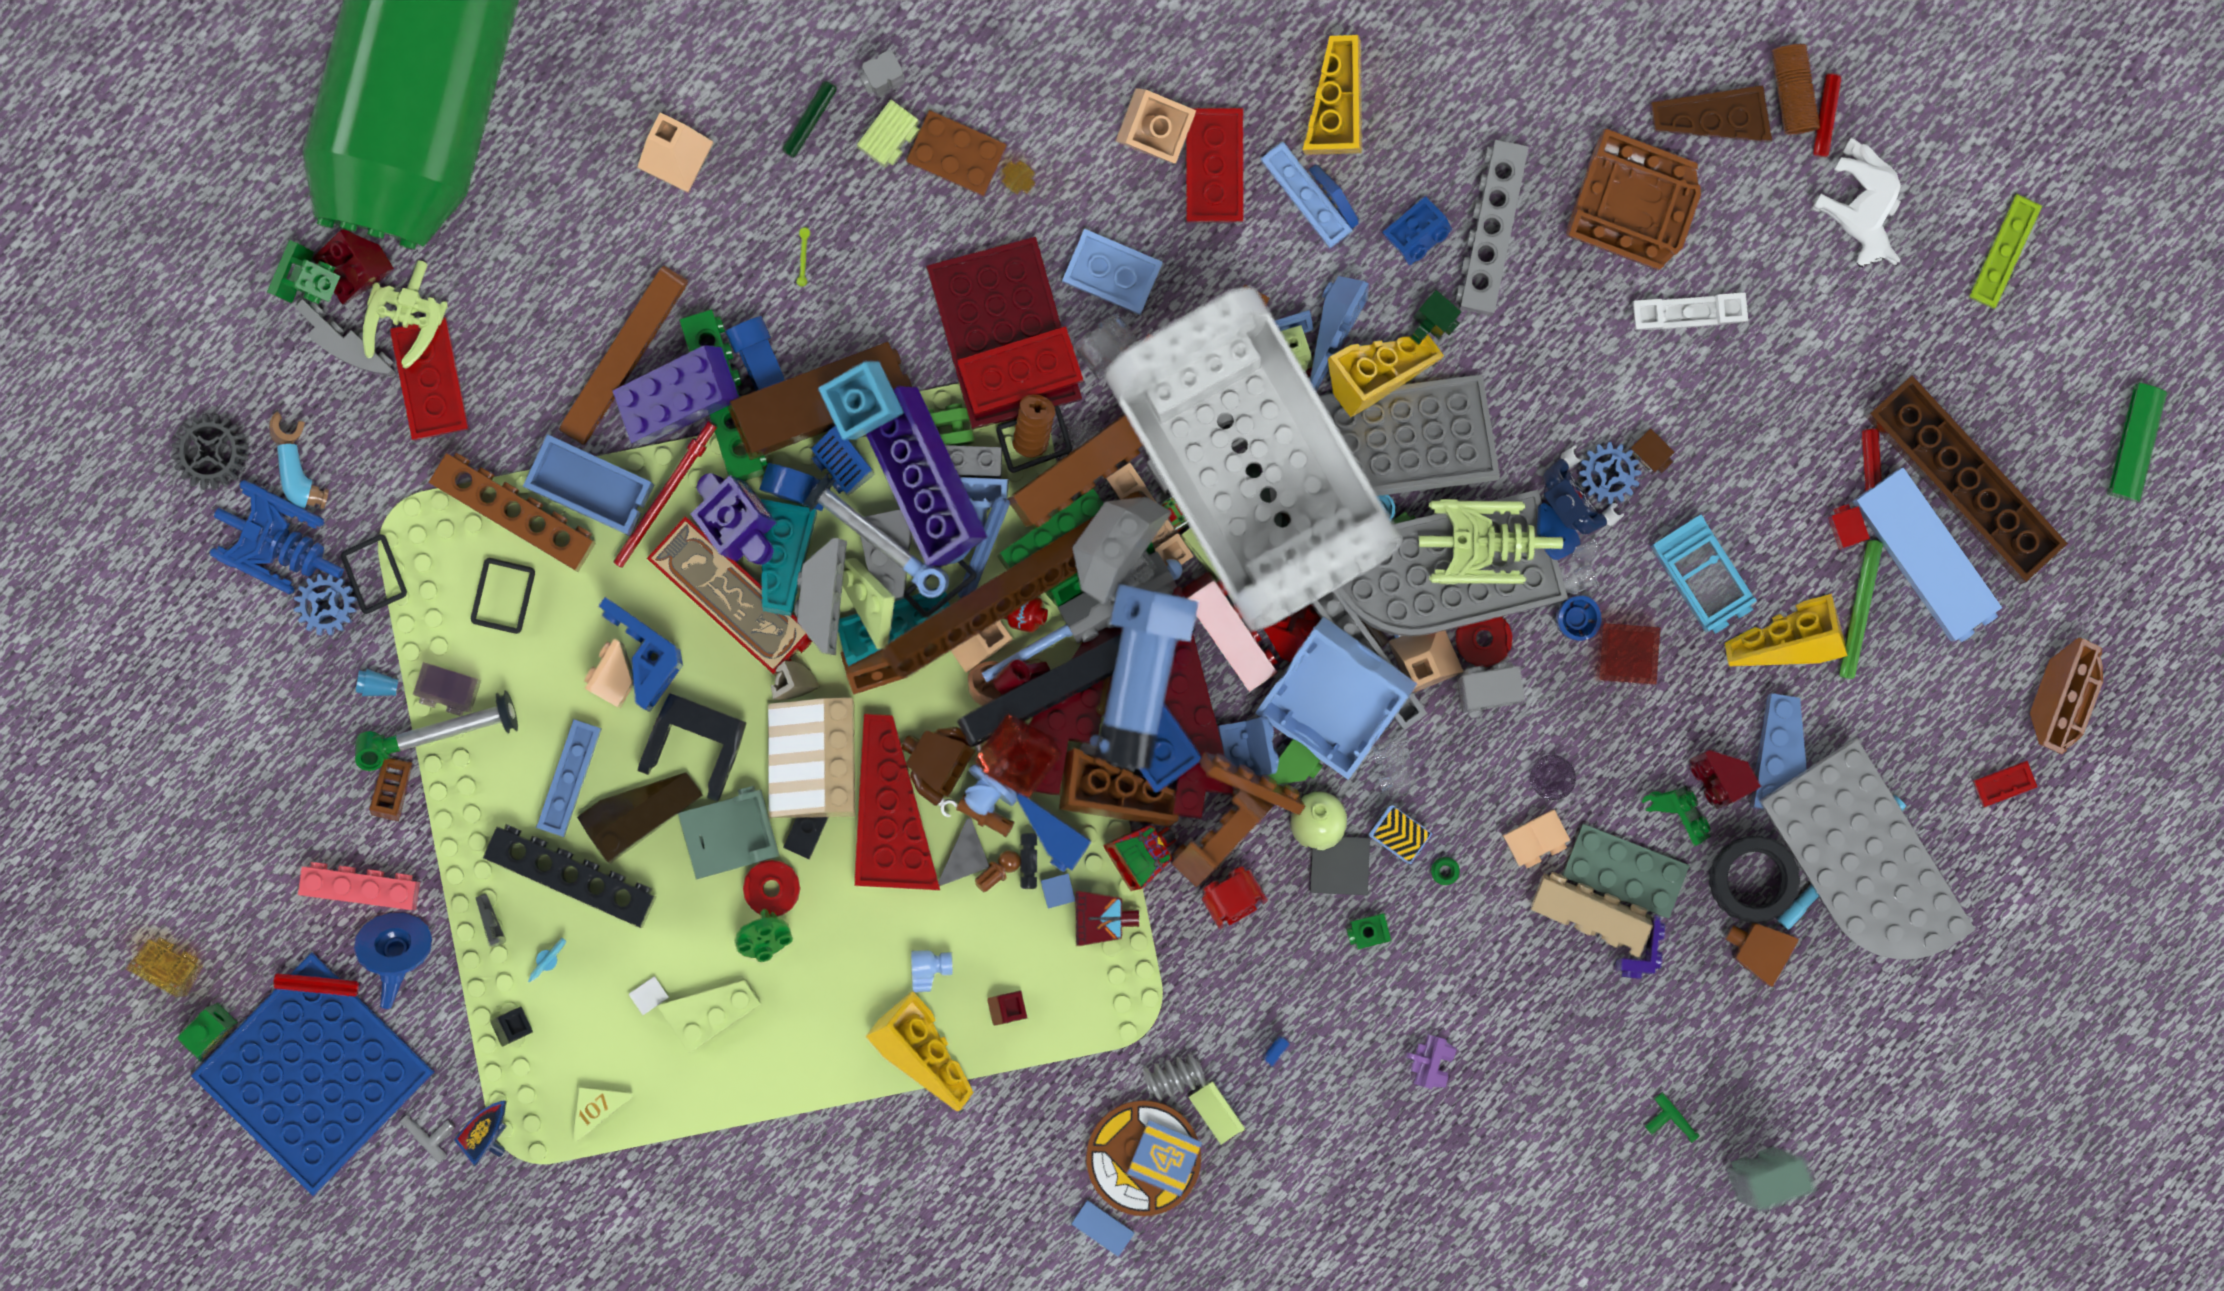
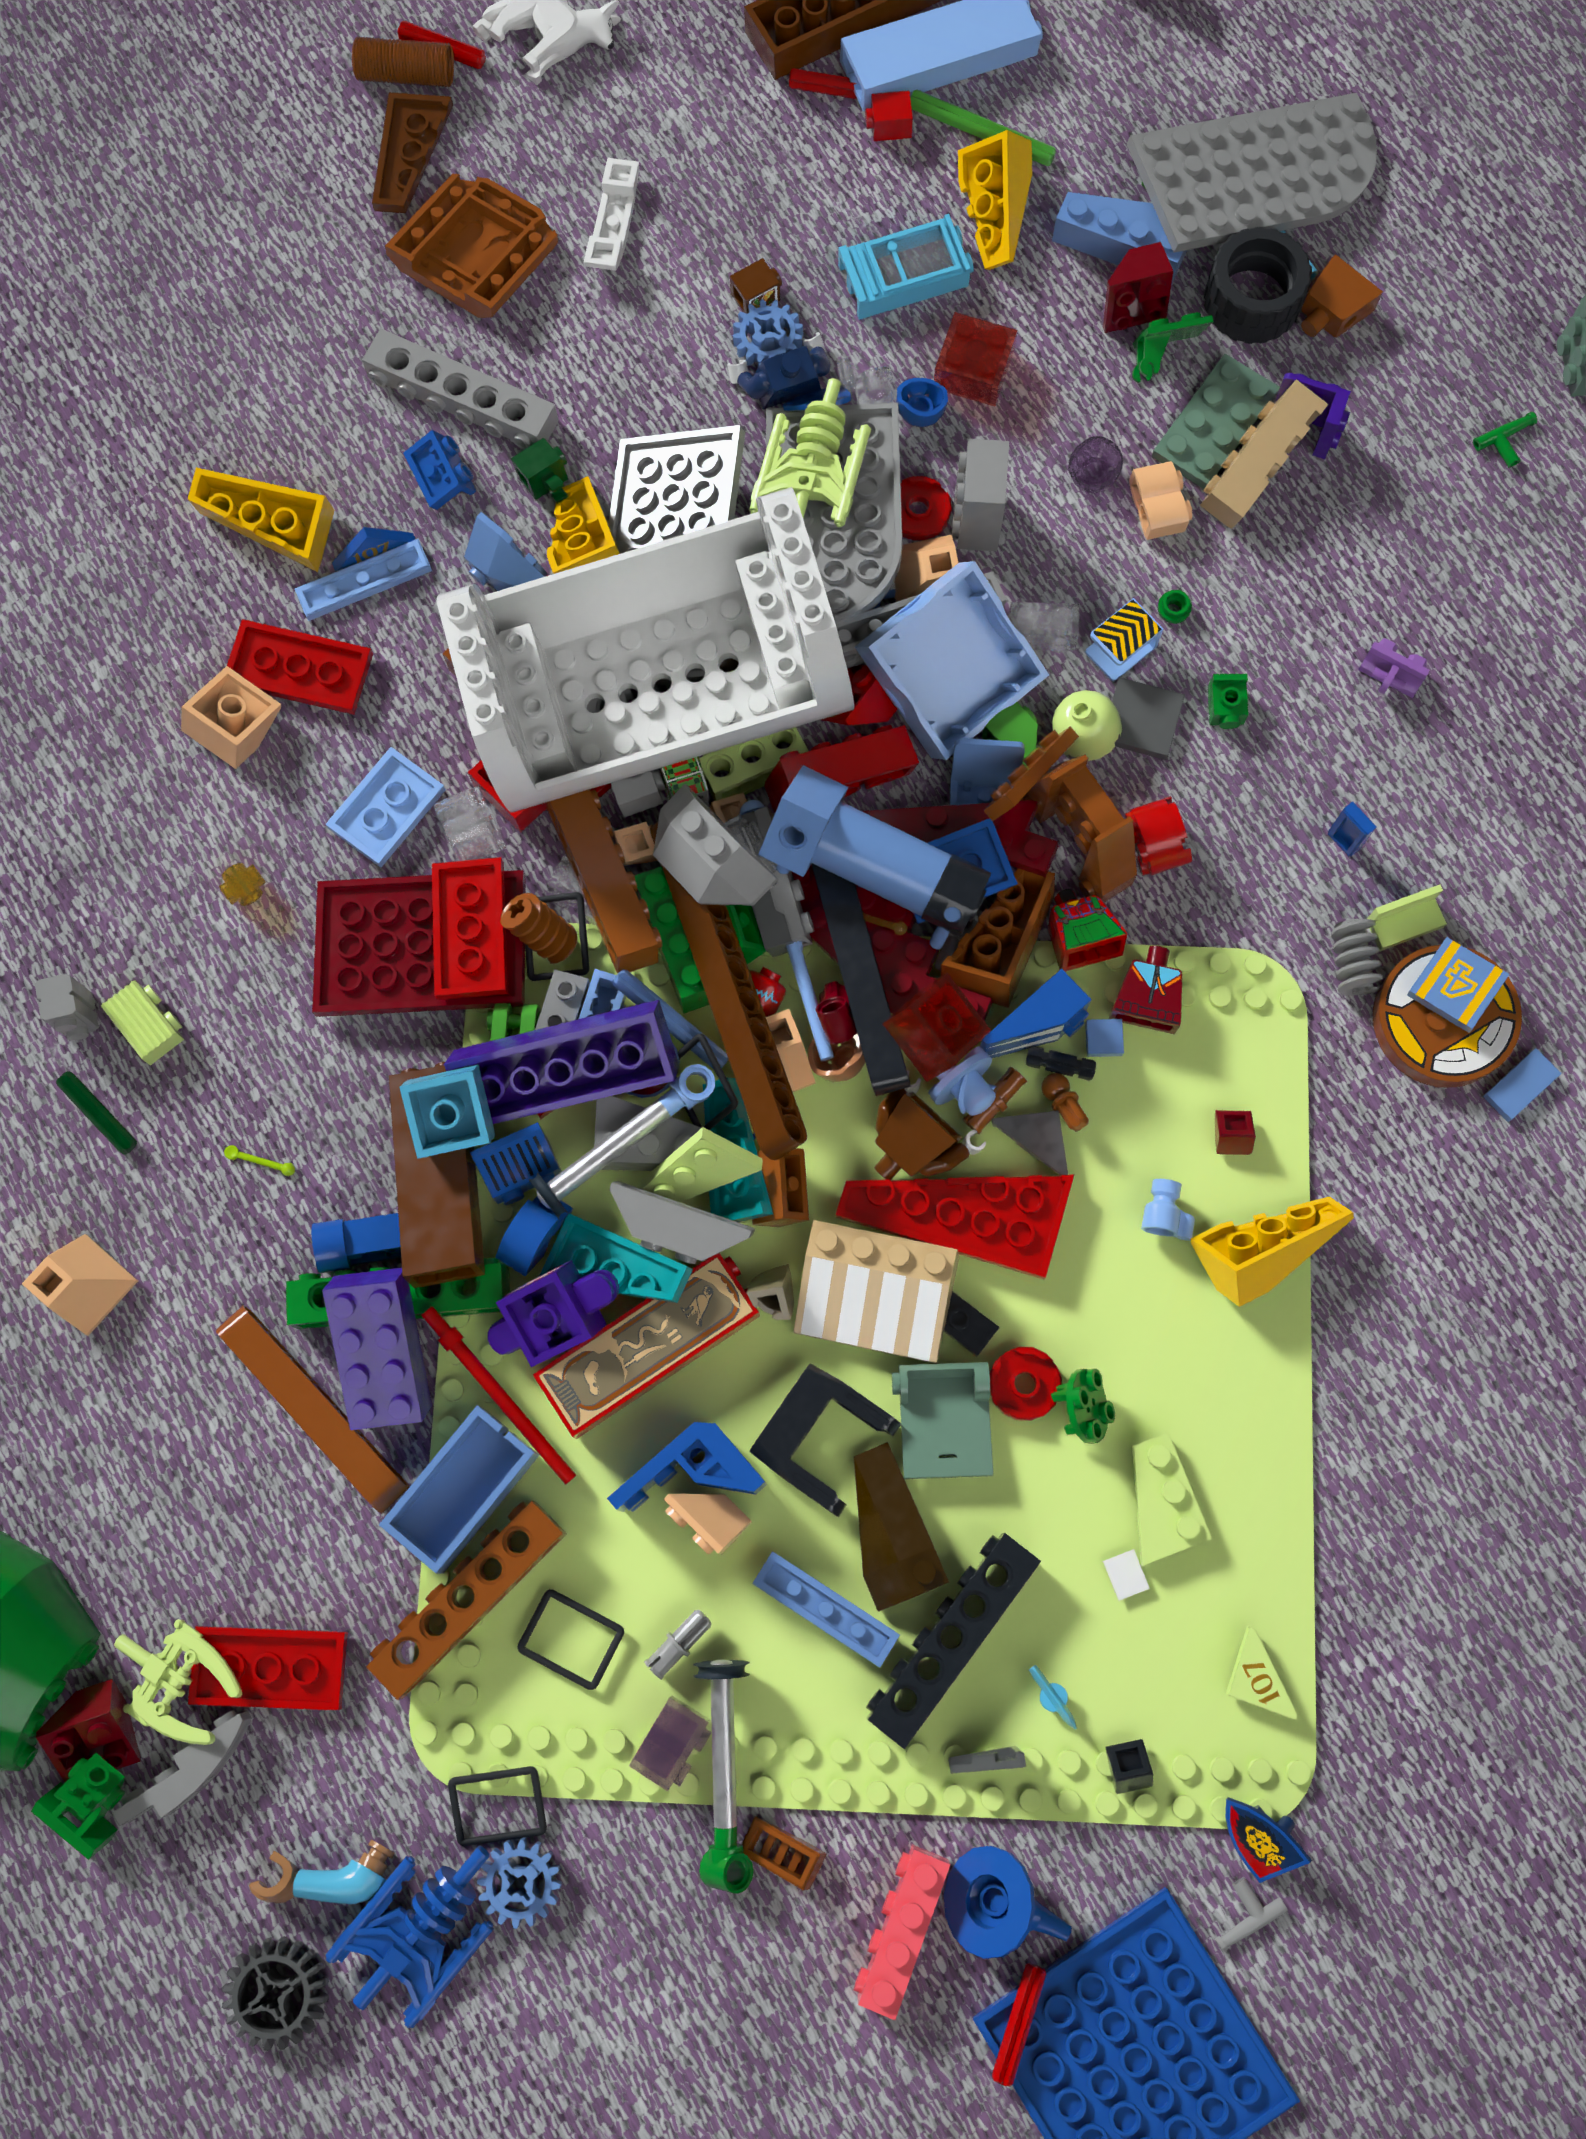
camera: 75 degrees left, 10 degrees down
(375, 684) = (640, 1840): dark azure cone -> none
(518, 676) = (678, 1644): none -> light grey axle
(956, 153) = (192, 951): dark orange plate -> none
(2005, 784) = (1204, 32): red plate -> none

